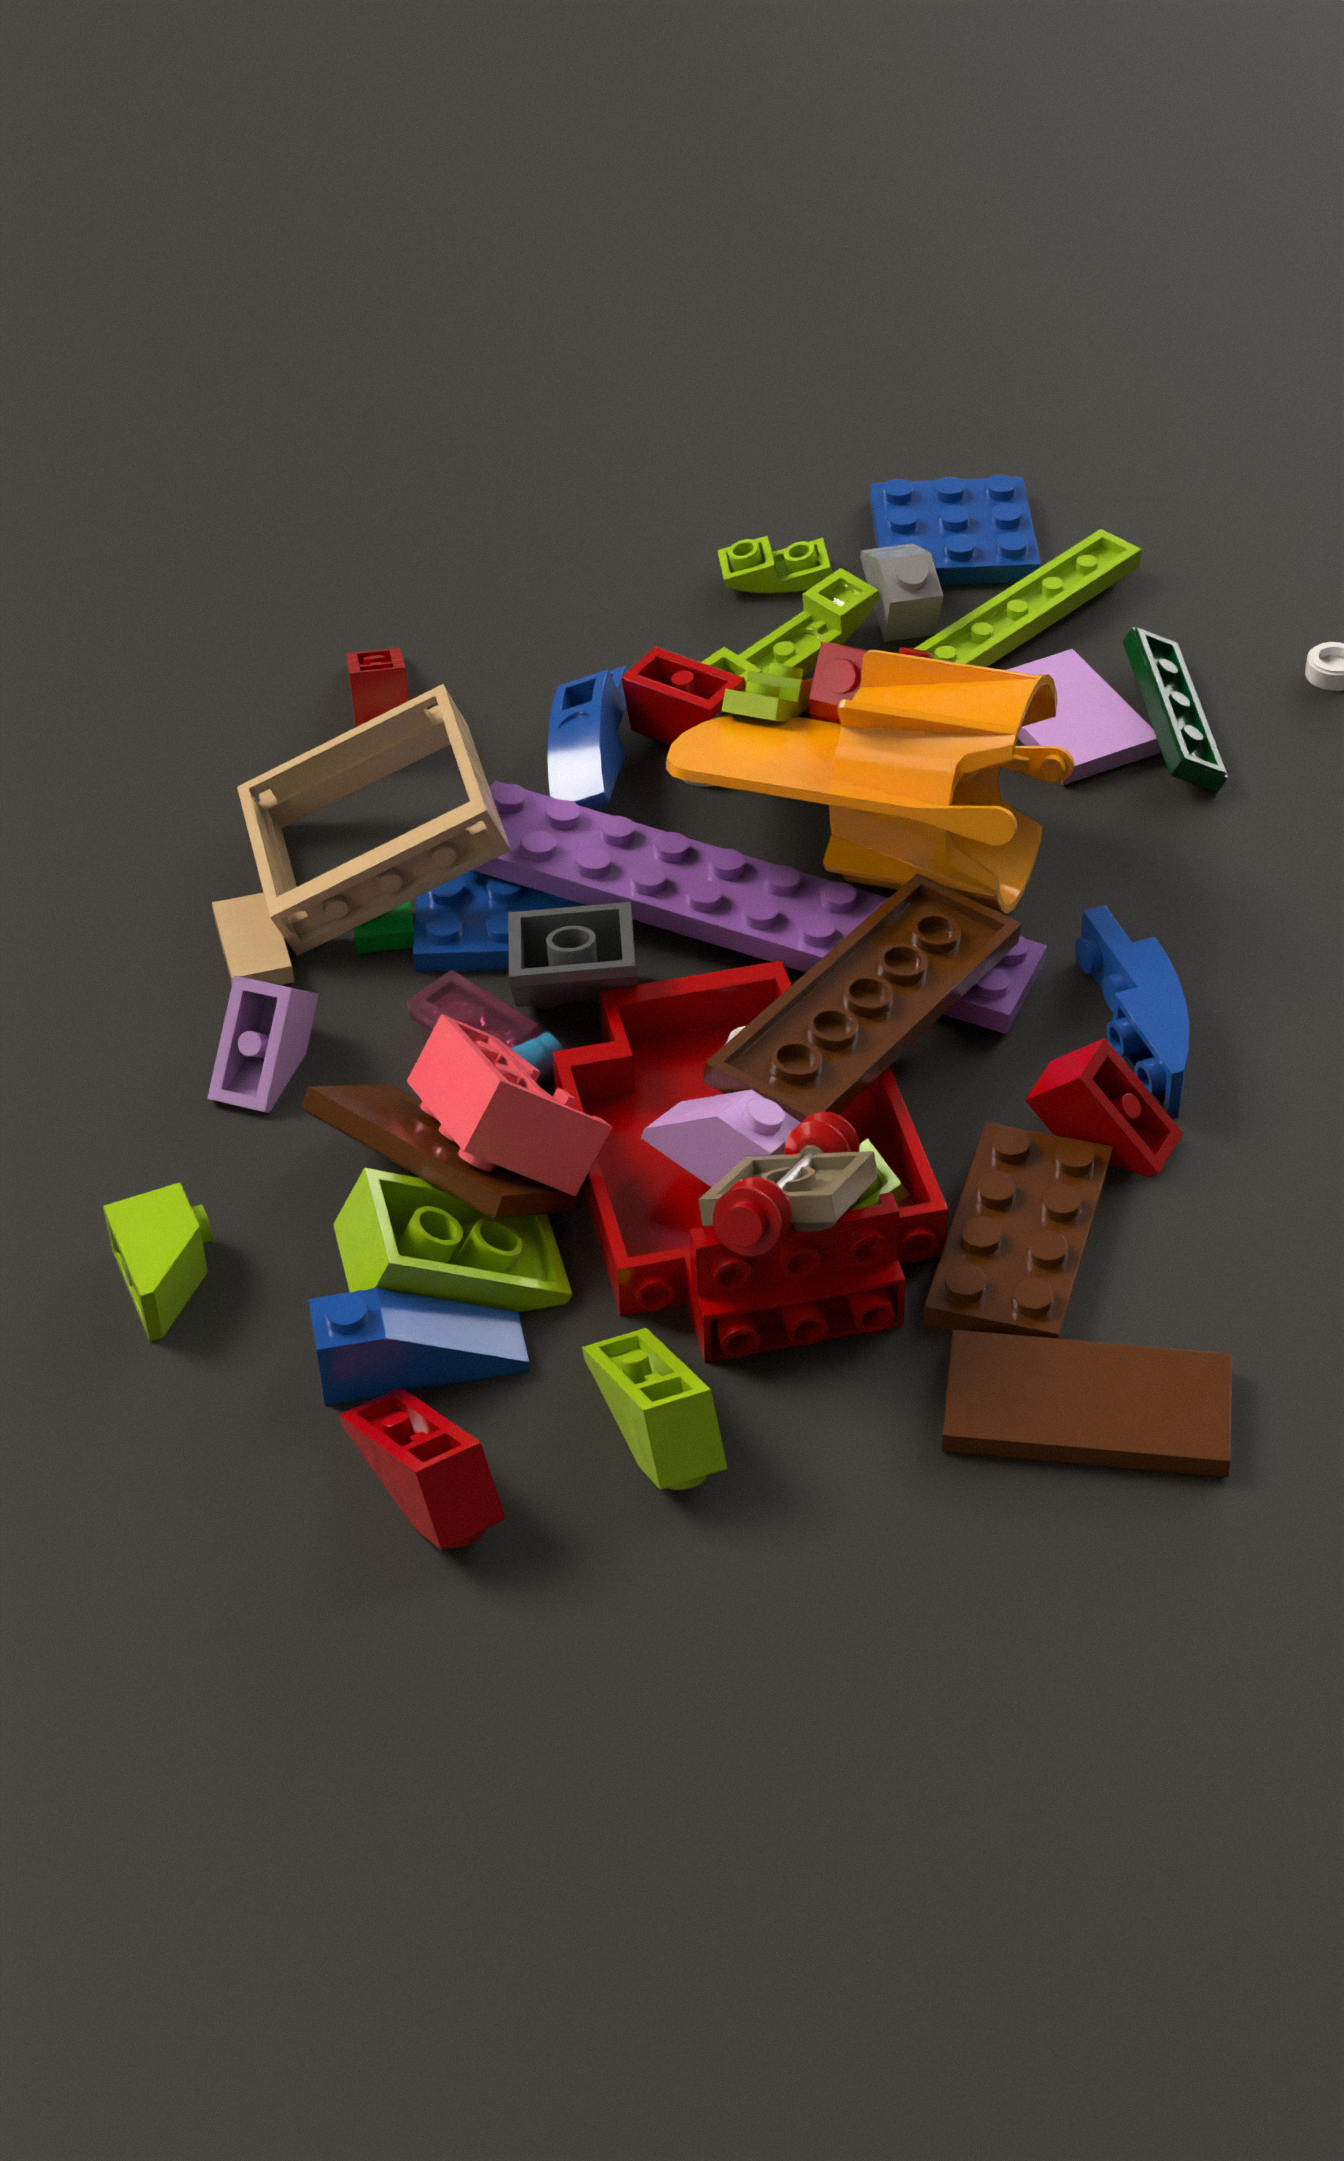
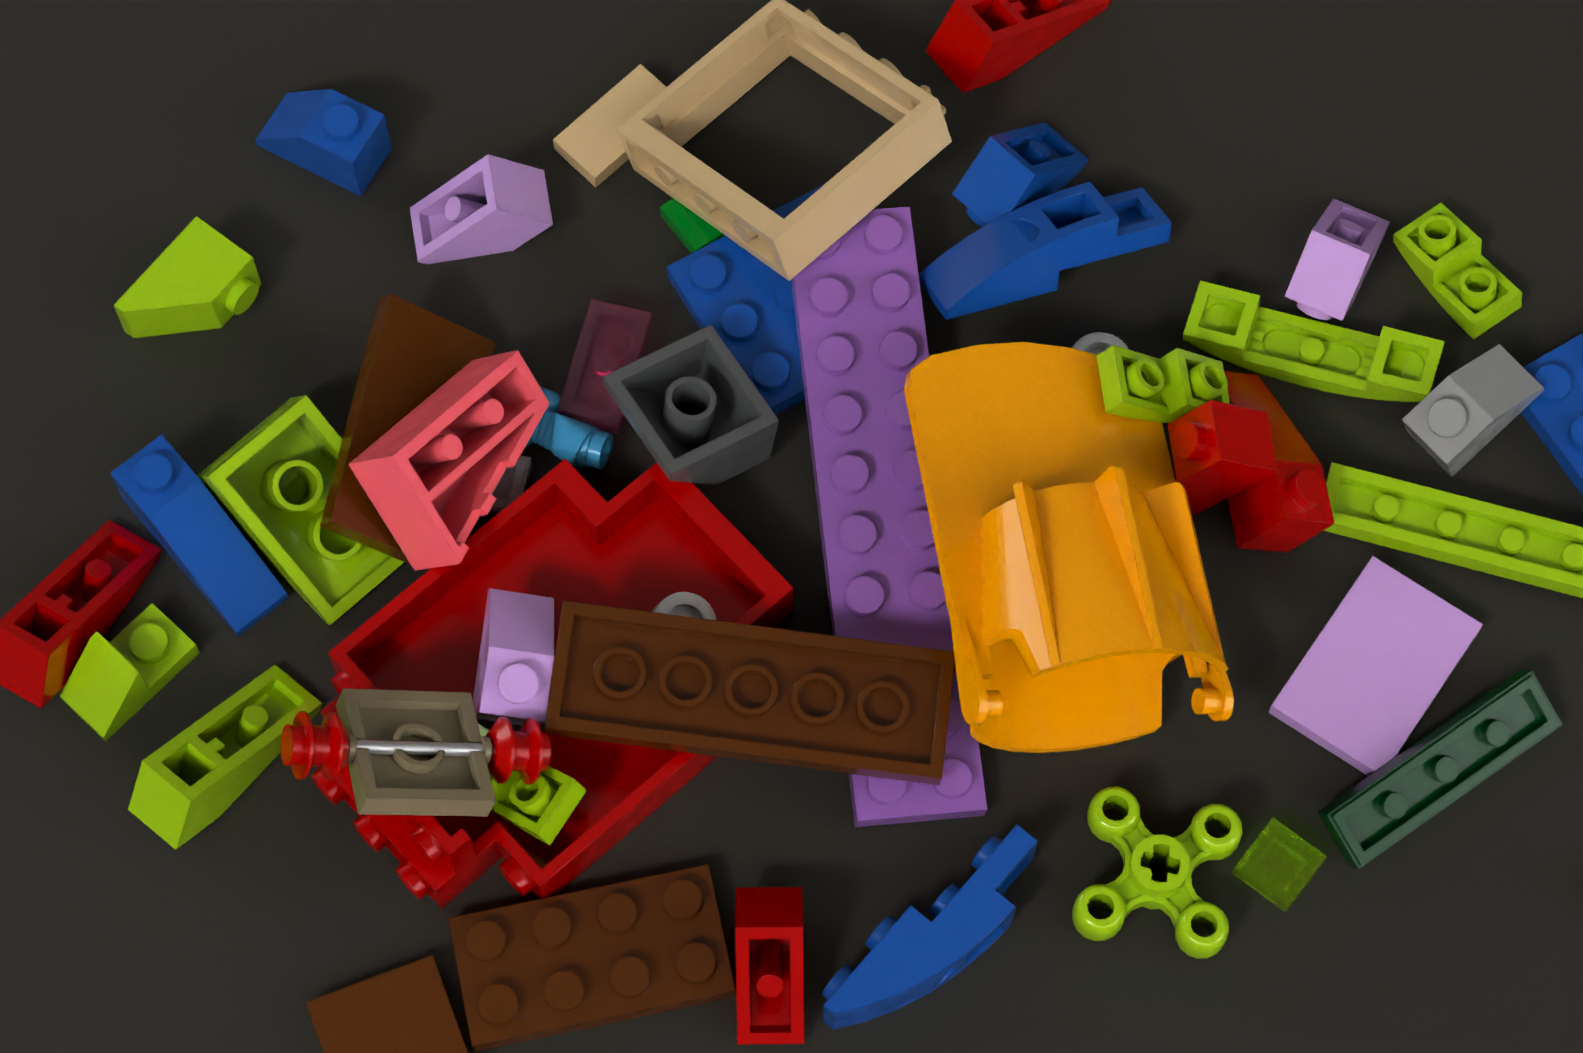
camera: 60 degrees right, 25 degrees up
(93, 1112) = (328, 137): none -> blue slope
(512, 733) = (1016, 171): none -> blue slope
(515, 1450) = (124, 674): none -> lime slope
(674, 694) = (1136, 295): red slope -> none
(726, 606) = (1336, 260): none -> lavender slope
(1166, 871) = (1179, 859): none -> lime gear
(1196, 818) = (1279, 864): none -> clear neon green tile

